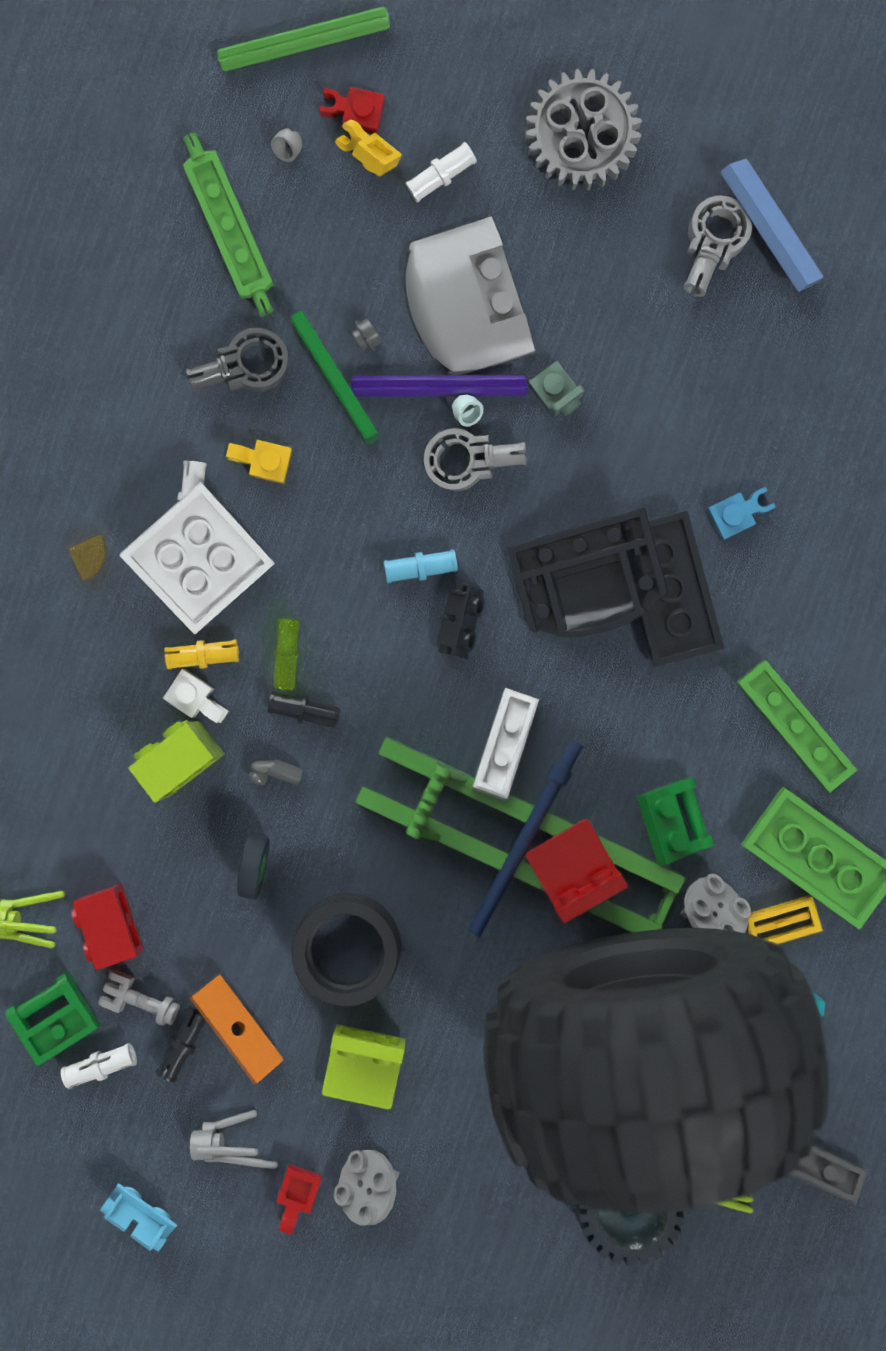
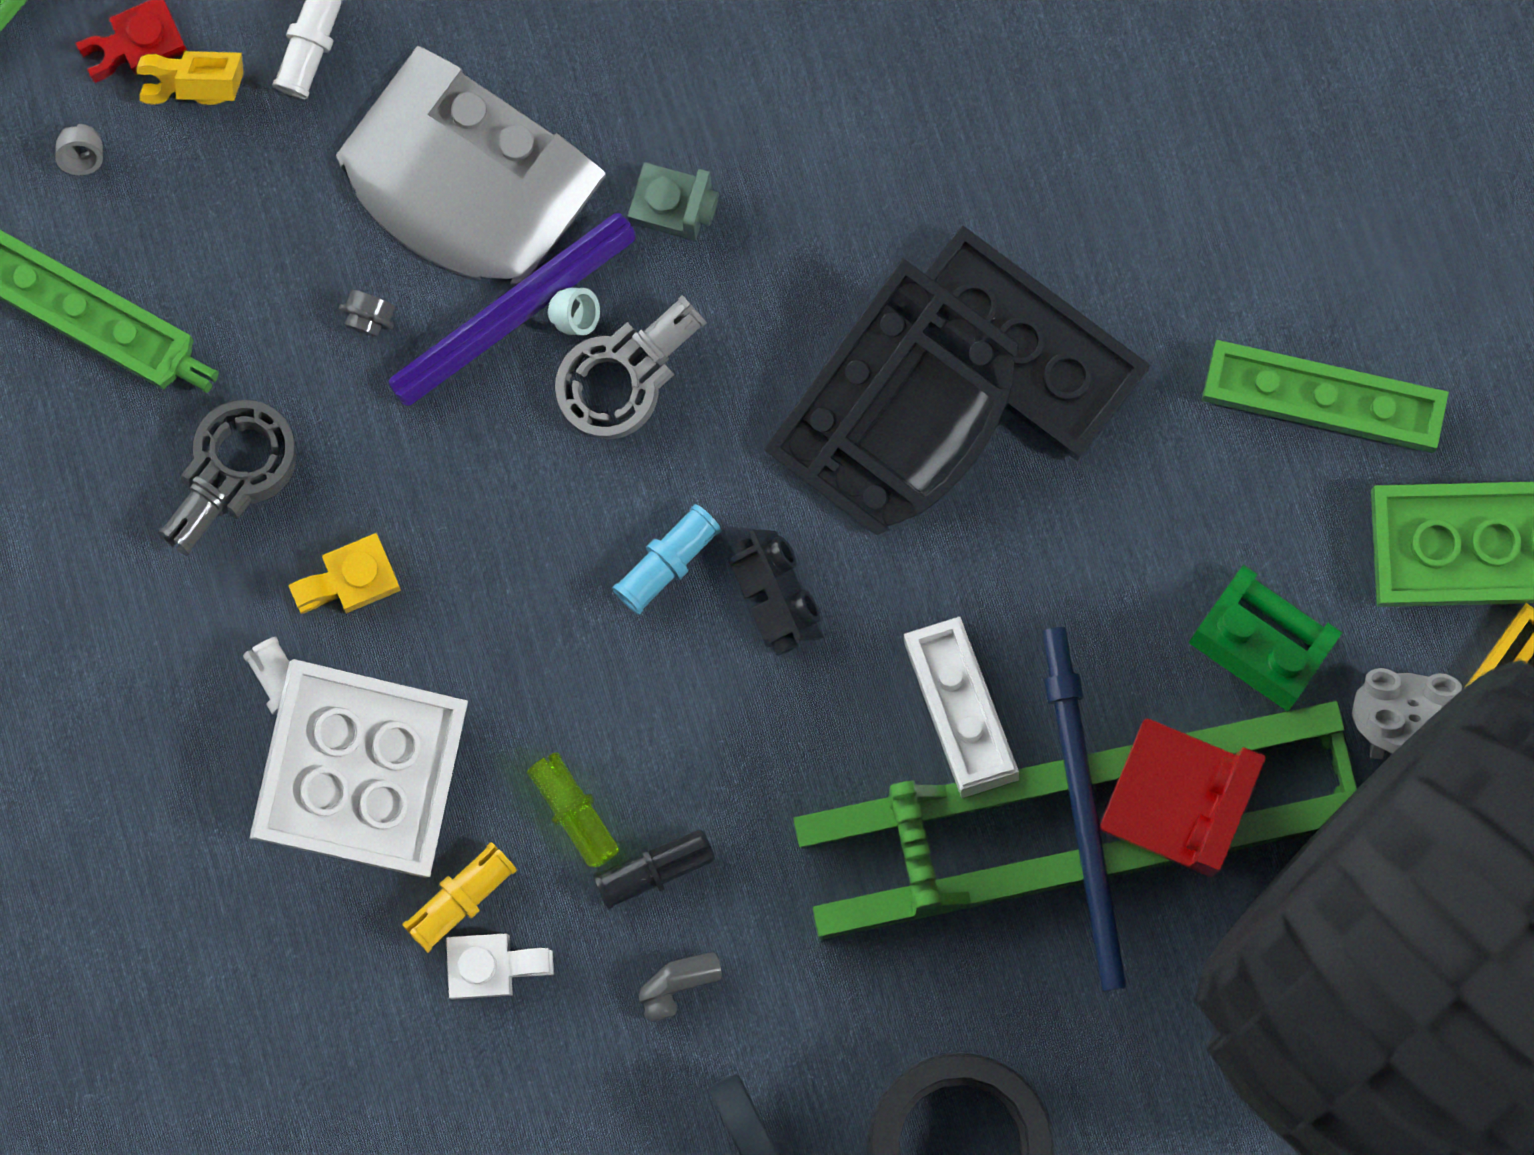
camera: 35 degrees left, 10 degrees down
(89, 556) = (205, 882): clear yellow tile -> none
(176, 760) = (531, 1058): lime brick -> none
(334, 377) = (367, 399): green tile -> none
(736, 514) = (1030, 186): dark azure plate -> none

